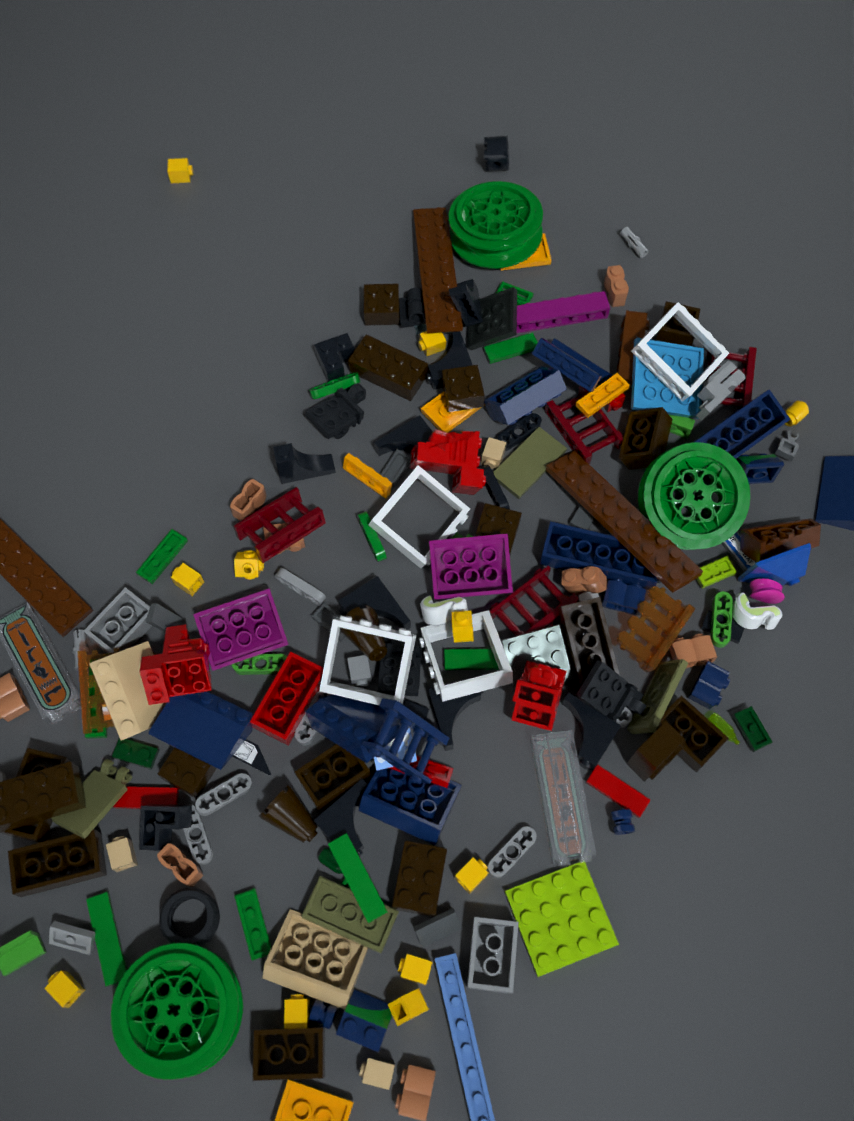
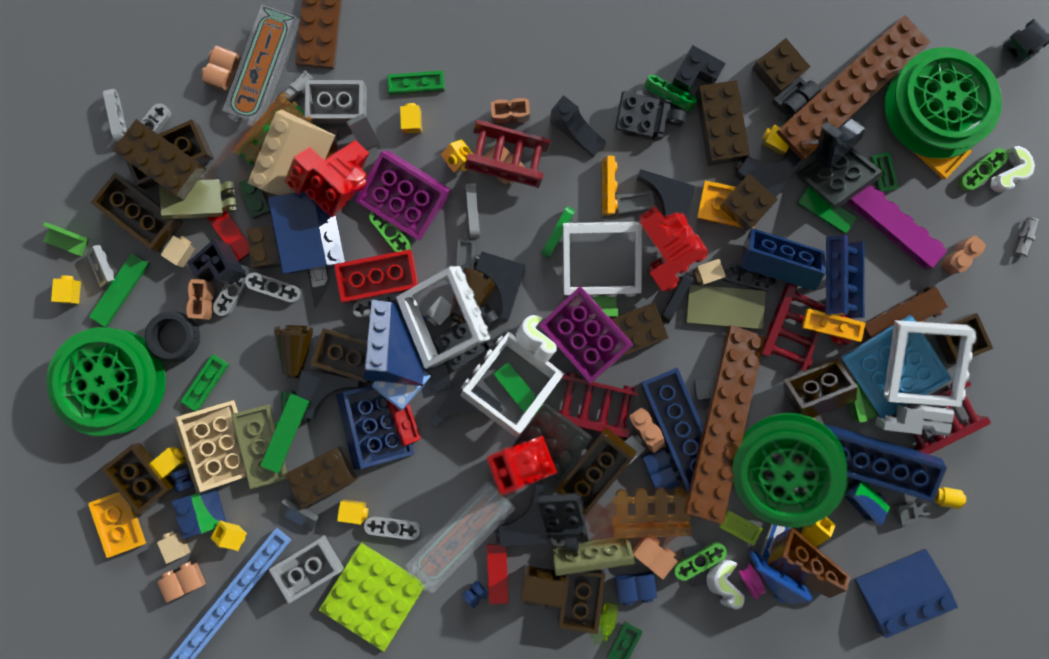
camera: 55 degrees right, 20 degrees up
(415, 969) = (258, 521): yellow brick -> none
(420, 728) = (416, 384): dark blue fence -> none
(462, 626) = (530, 366): yellow brick -> none
(560, 243) = (991, 167): none -> bright green beam
(583, 214) = (1022, 170): none -> white animal
(757, 515) = (818, 532): none -> yellow brick

